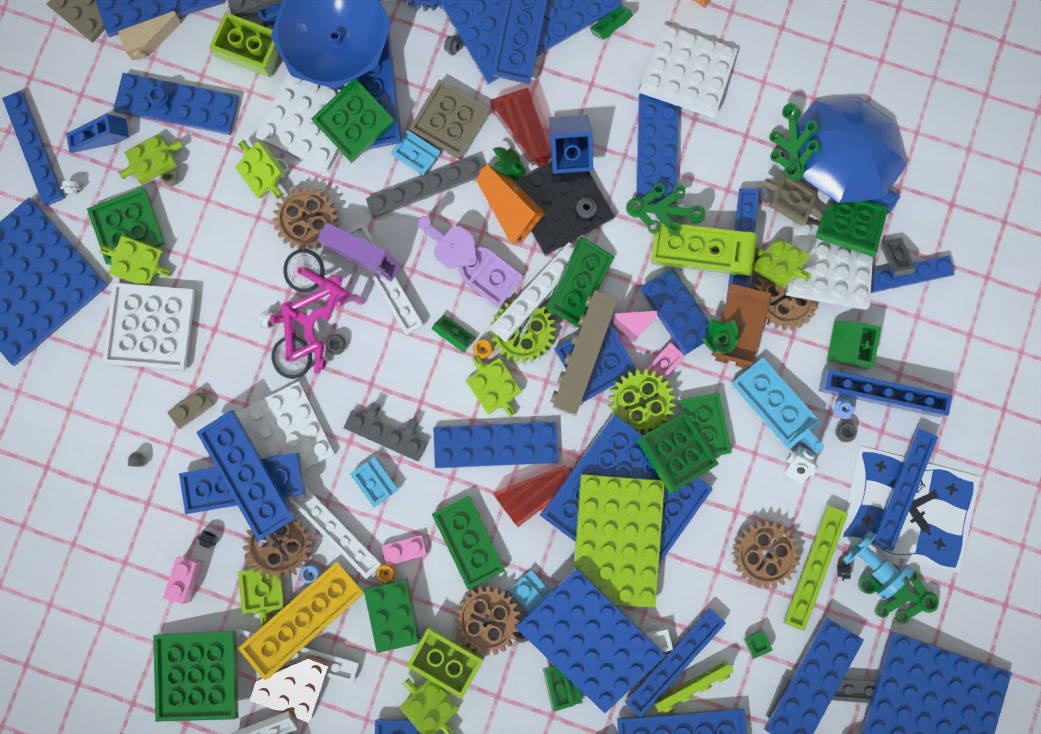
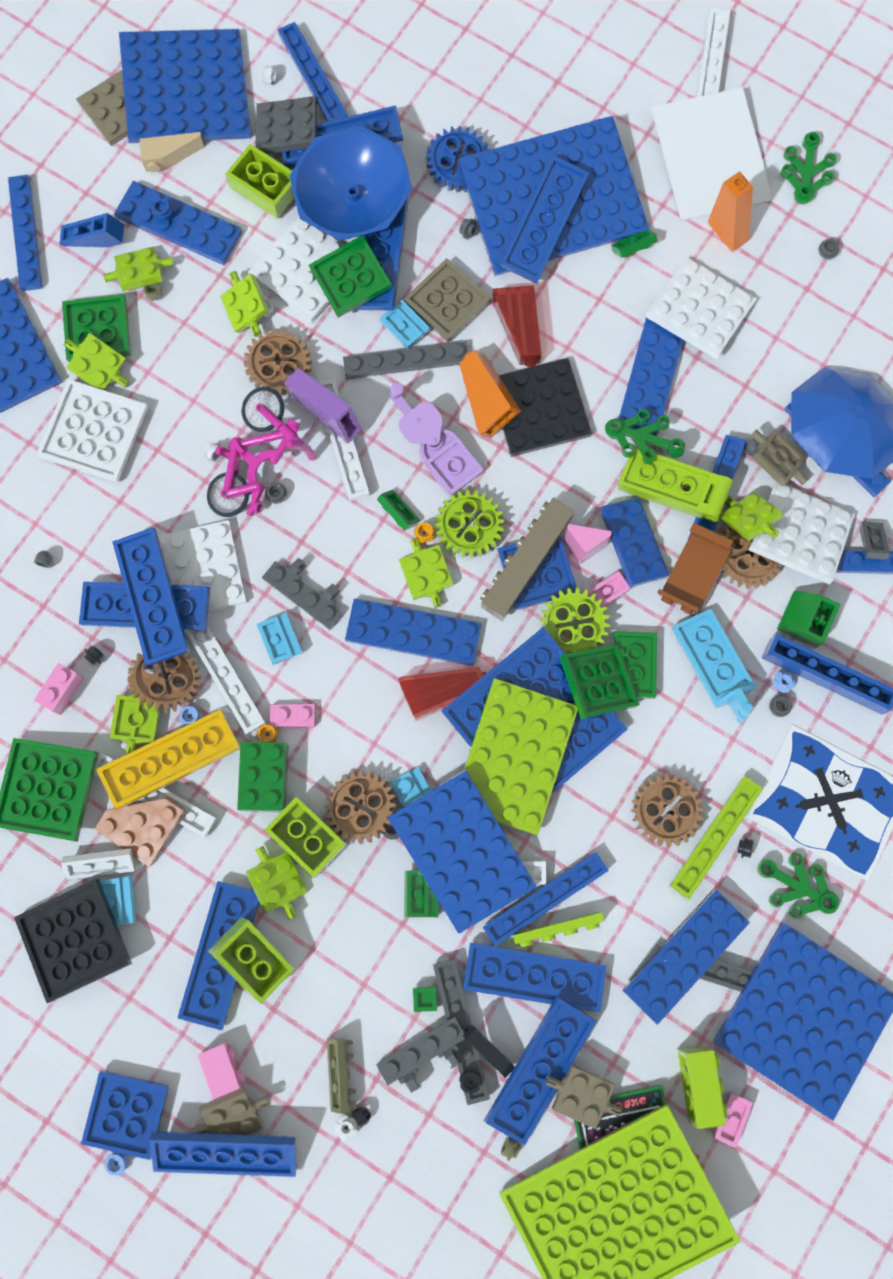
camera: 10 degrees right, 5 degrees down
(70, 187) = (51, 277): white plate -> none
(190, 408) = (112, 521): dark tan plate -> none
(468, 542) = (360, 723): green plate -> none
(508, 163) = (496, 355): green plate -> none
(532, 296) = (493, 487): white plate -> none
(571, 143) = (564, 350): blue slope -> none
(579, 279) = (545, 479): green tile -> none
(583, 213) = (564, 422): dark grey plate -> none
(718, 331) = (670, 571): green piece -> none
(758, 644) = (637, 901): green plate -> none
(795, 143) = (796, 371): green plant -> none
(801, 464) = (725, 725): white brick -> none
(853, 226) = (834, 497): green plate -> none
(887, 574) = (786, 855): medium azure piece -> none
(904, 489) = (828, 779): blue plate -> none

